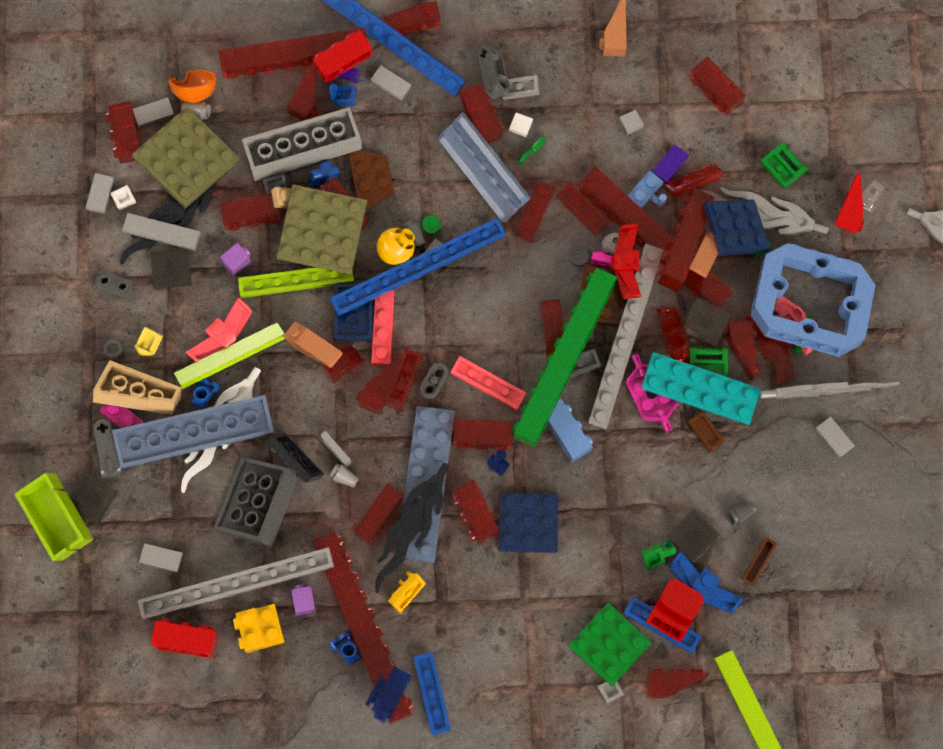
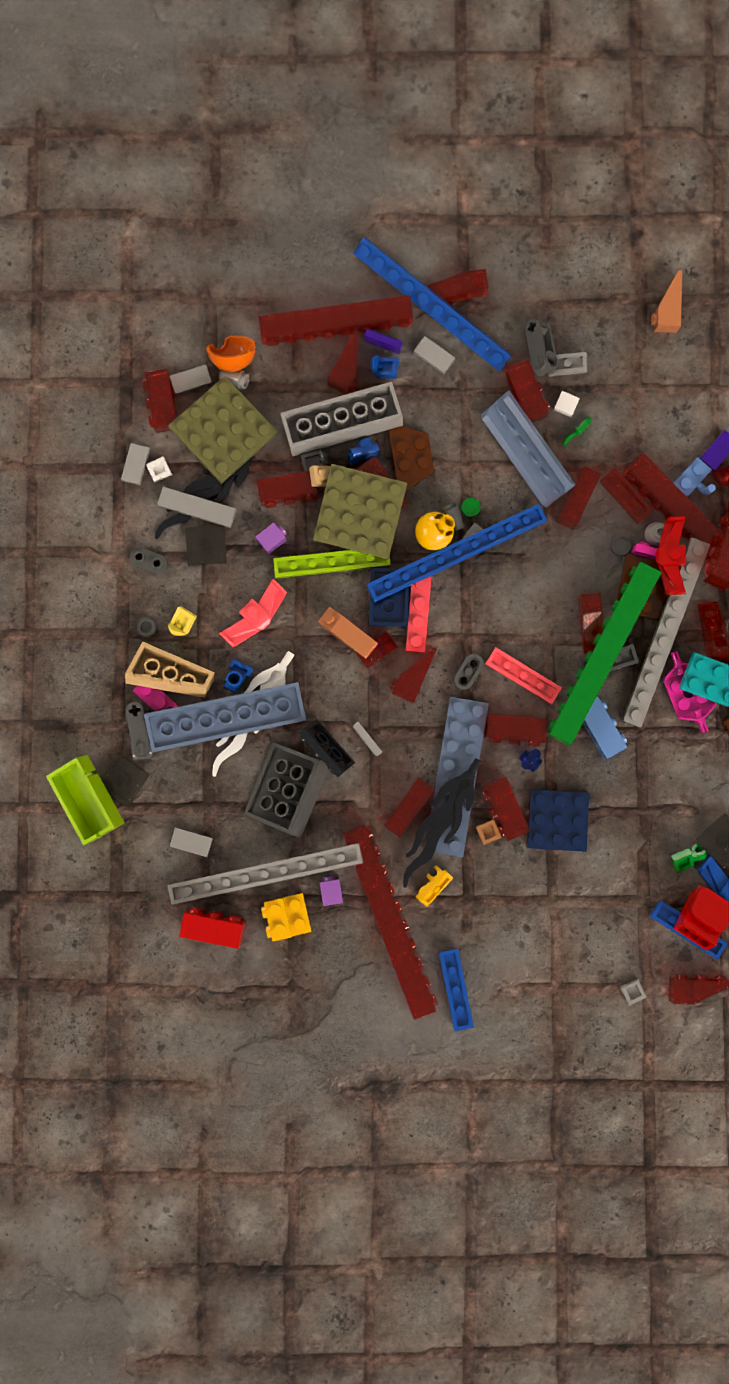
camera: 10 degrees right, 10 degrees up
(229, 355) = (263, 638): lime tile -> none
(342, 56) = (386, 326): red brick -> none
(343, 475) = (374, 766): light grey cone -> none
(344, 645) = (369, 937): blue plate -> none
(388, 694) = (414, 996): clear blue brick -> none
(404, 380) = (438, 670): clear red brick -> none
(459, 536) = (488, 832): none -> medium nougat plate
(609, 644) = (634, 946): green plate -> none
(631, 122) = (680, 404): light grey tile -> none

